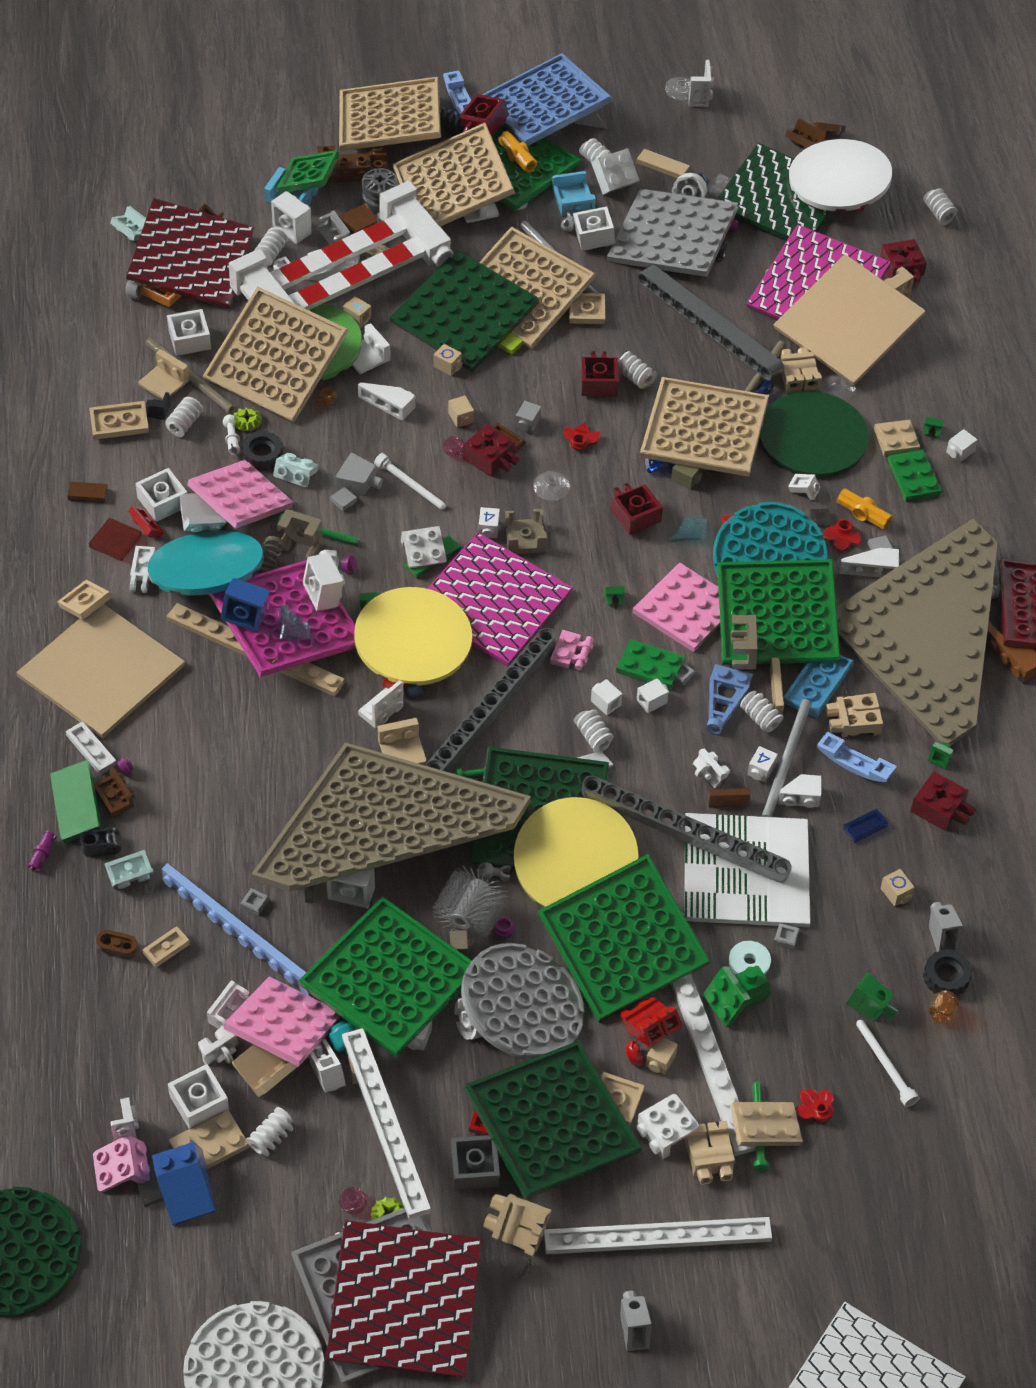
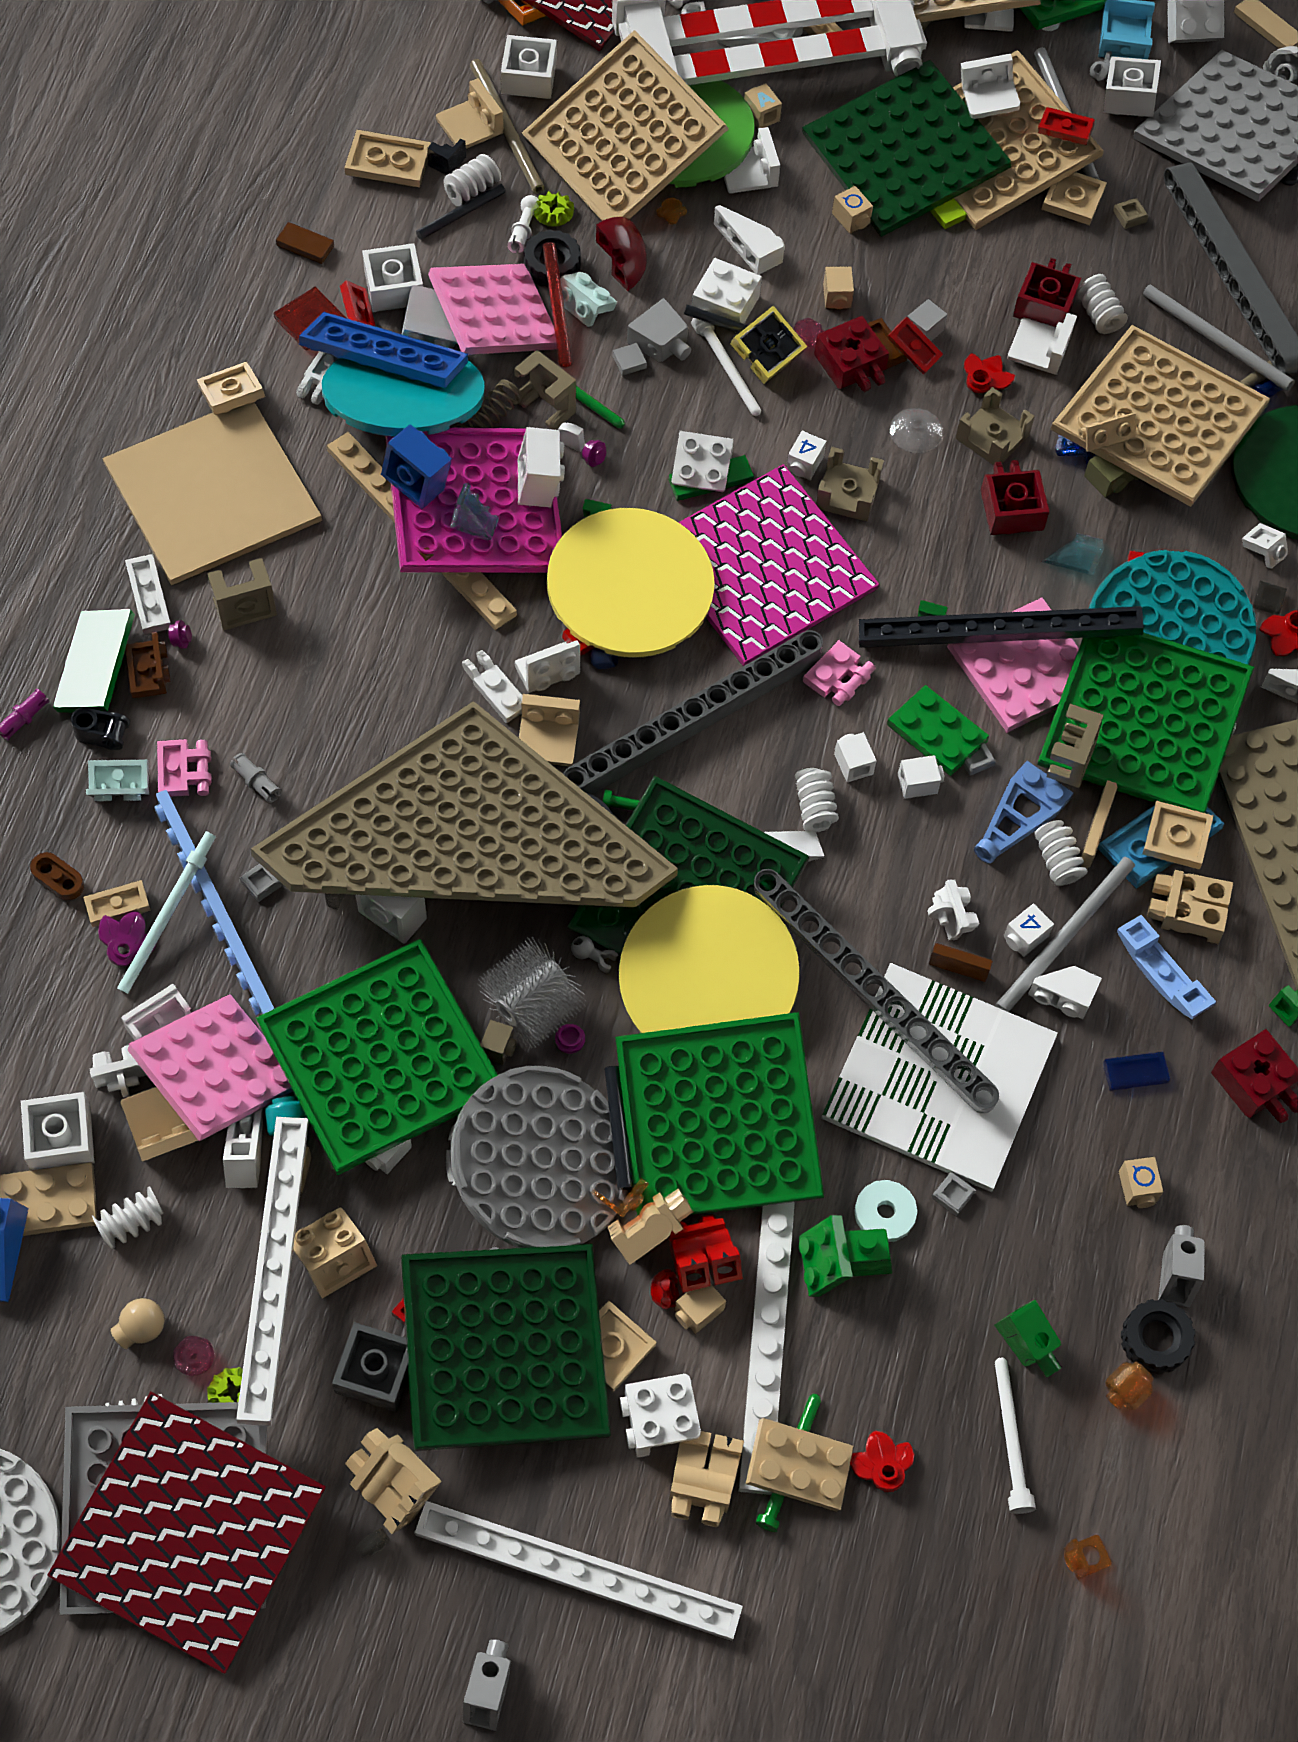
camera: 20 degrees right, 10 degrees up
(161, 730) = (245, 601): none -> dark tan panel
(162, 850) = (173, 767): none -> bright pink plate
(180, 541) = (383, 349): none -> blue plate
(183, 441) = (460, 211): none -> black bar
(183, 964) = (126, 934): none -> magenta plate
(210, 900) = (195, 861): none -> light aqua bar
(221, 838) = (255, 778): none -> light grey pin
(280, 477) = (557, 305): none -> clear red piece
(308, 1192) = (138, 1323): none -> tan piece
(309, 427) = (625, 246): none -> dark red brick
(352, 730) = (495, 687): none -> white hinge
(390, 437) = (727, 291): none -> white brick
(404, 456) = (714, 319): none -> black bar
(416, 1106) = (333, 1252): none -> tan bracket
(433, 460) = (768, 344): none -> piece
(504, 255) = (989, 86): none -> white bracket
(528, 432) = (914, 345): none -> red plate
(562, 967) = (618, 1128): none -> black piece
(566, 265) = (1066, 126): none -> red plate
(591, 1007) = (631, 1202): none -> clear orange bracket
(600, 470) = (992, 430): none -> dark tan panel
(609, 407) = (1041, 344): none -> white bracket
(610, 1015) = (651, 1226): none -> tan hips
(627, 308) = (1130, 213): none -> dark tan tile
(663, 587) = (1001, 627): none -> black plate
(678, 445) = (1109, 431): none -> tan hinge
(718, 368) = (1218, 338): none -> light grey piece
(829, 675) = (1178, 835): none -> tan plate
(958, 1116) = (1076, 1560): none -> clear orange bracket

